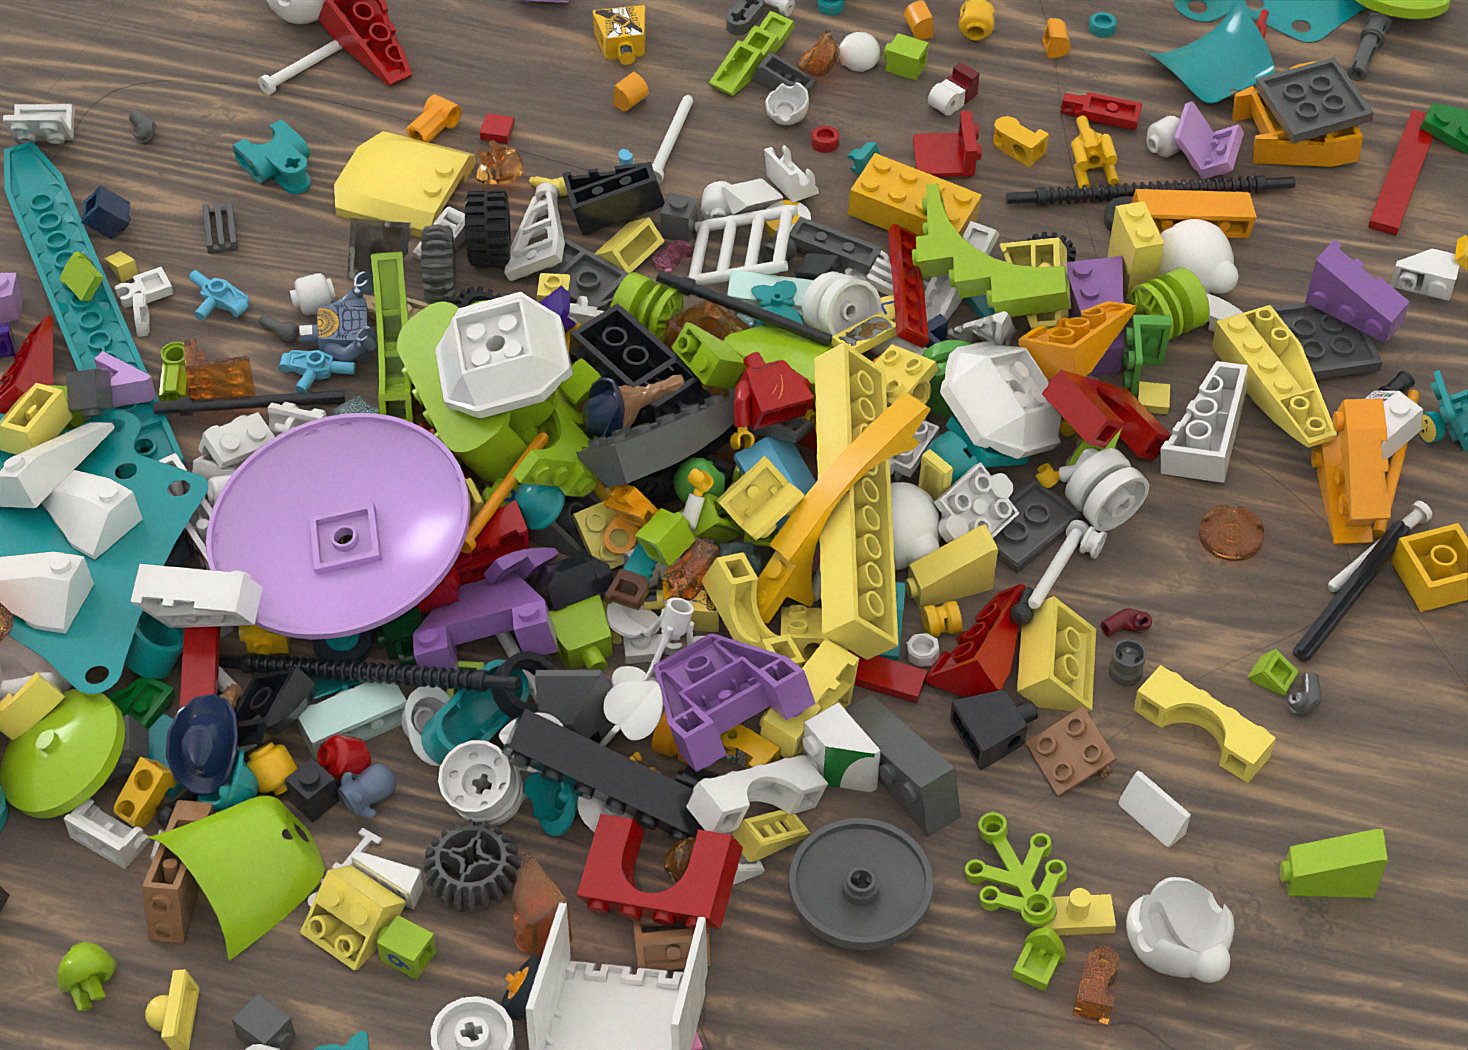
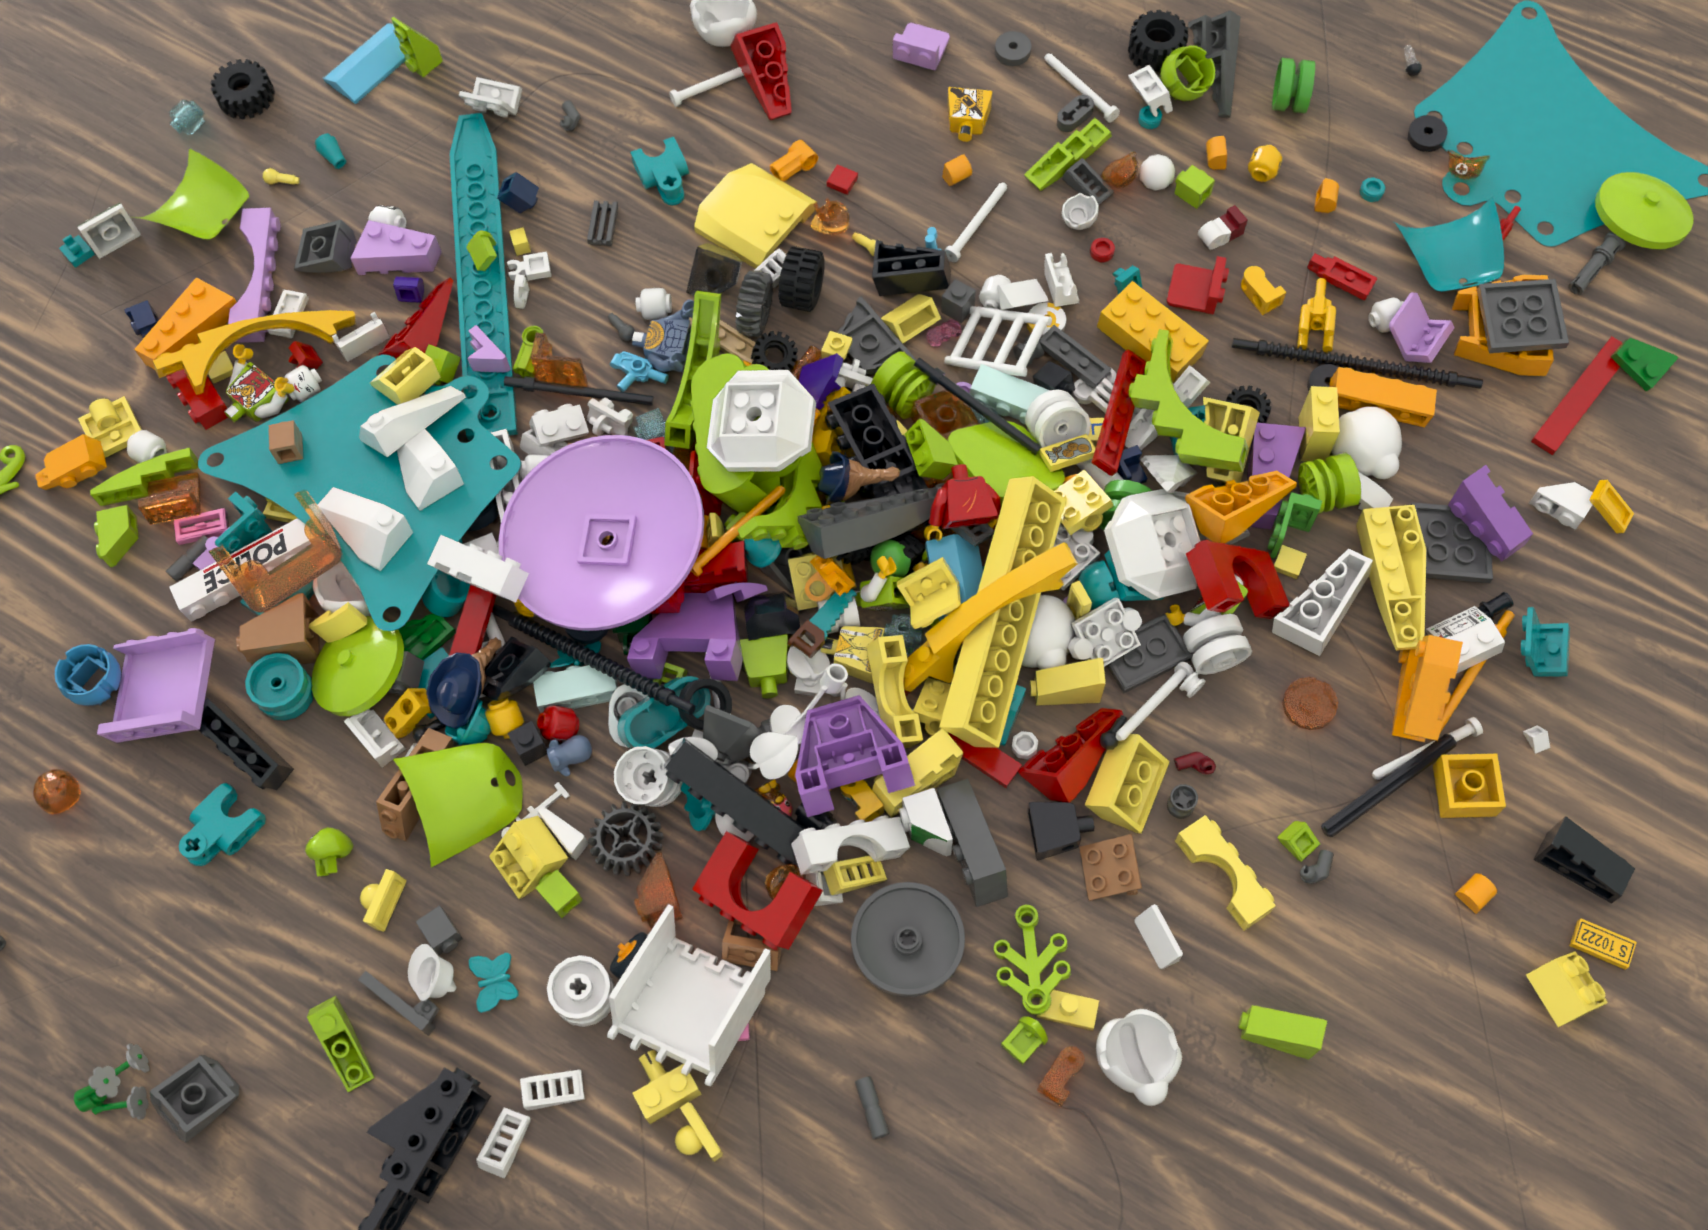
camera: 20 degrees right, 15 degrees up
(89, 391) = (455, 361): dark grey brick -> none
(218, 294) = (584, 286): medium azure piece -> none
(545, 253) = (843, 310): white plate -> none
(579, 384) = (824, 443): lime slope -> none
(665, 537) = (847, 605): lime brick -> none
(686, 576) = (854, 640): clear orange leg -> none
(778, 299) = (1006, 403): teal piece -> none
(941, 619) = (1047, 723): yellow wheel -> none
(1432, 428) = (1512, 650): tile -> none

